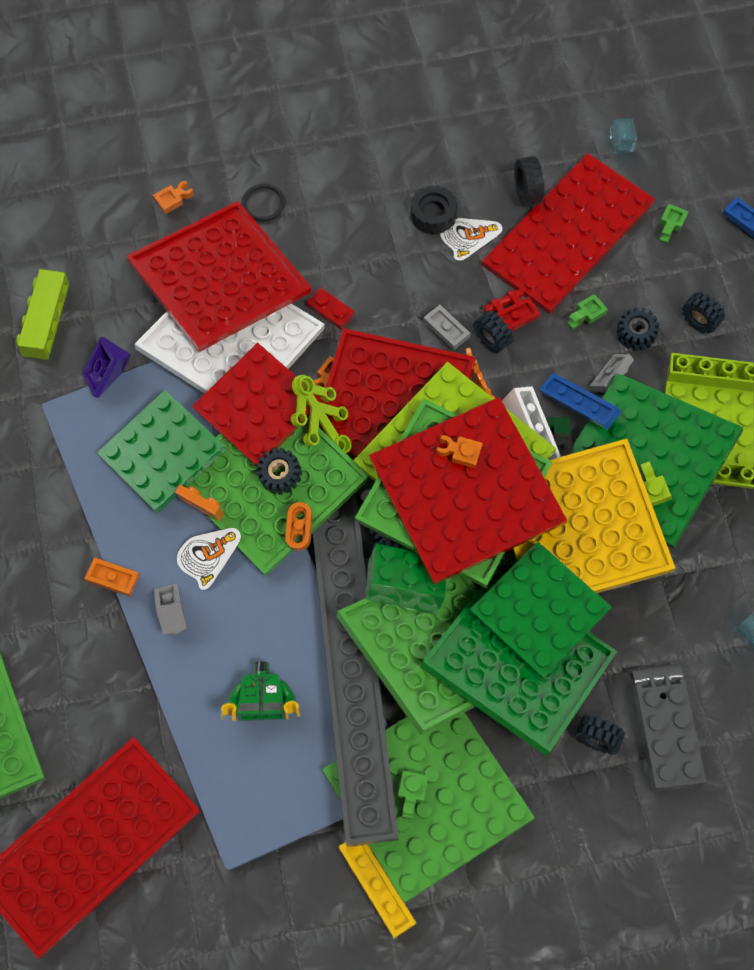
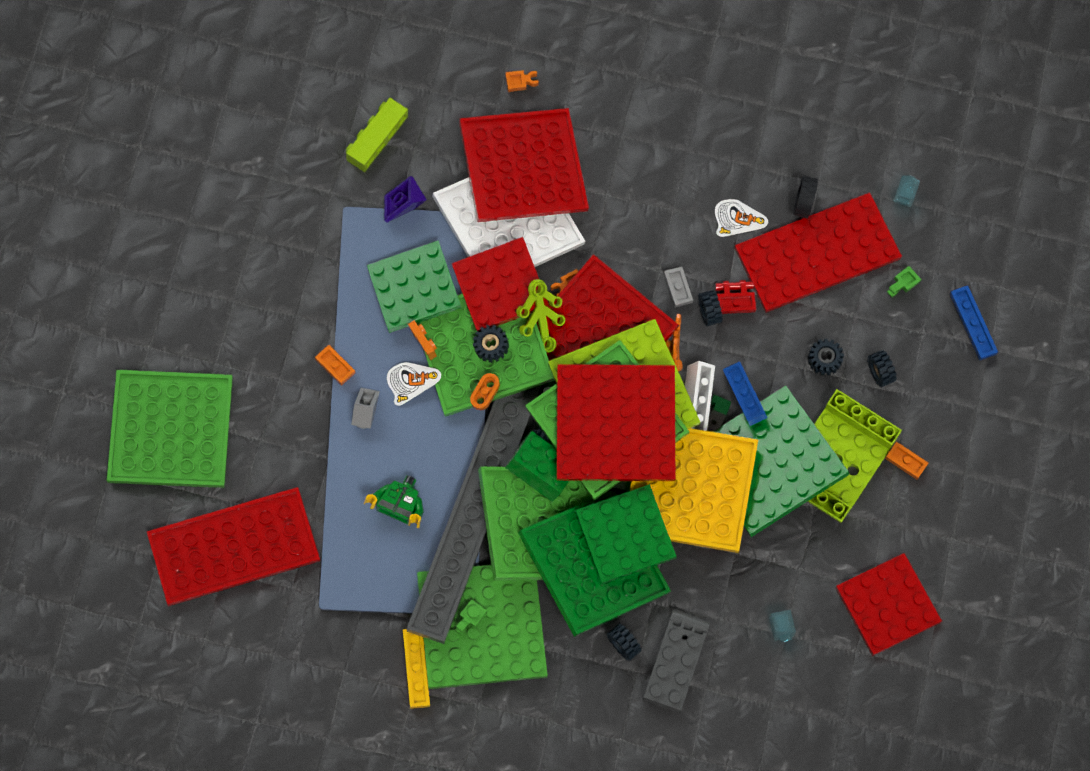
camera: 20 degrees right, 5 degrees up
(264, 218) = (591, 101): black piece -> none
(330, 308) = (597, 230): red plate -> none
(434, 195) = (725, 172): black tyre -> none
(464, 451) = (626, 394): orange plate -> none
(589, 310) = (797, 325): bright green plate -> none
(617, 364) = (791, 380): light grey plate -> none
(655, 486) = (759, 486): lime plate -> none

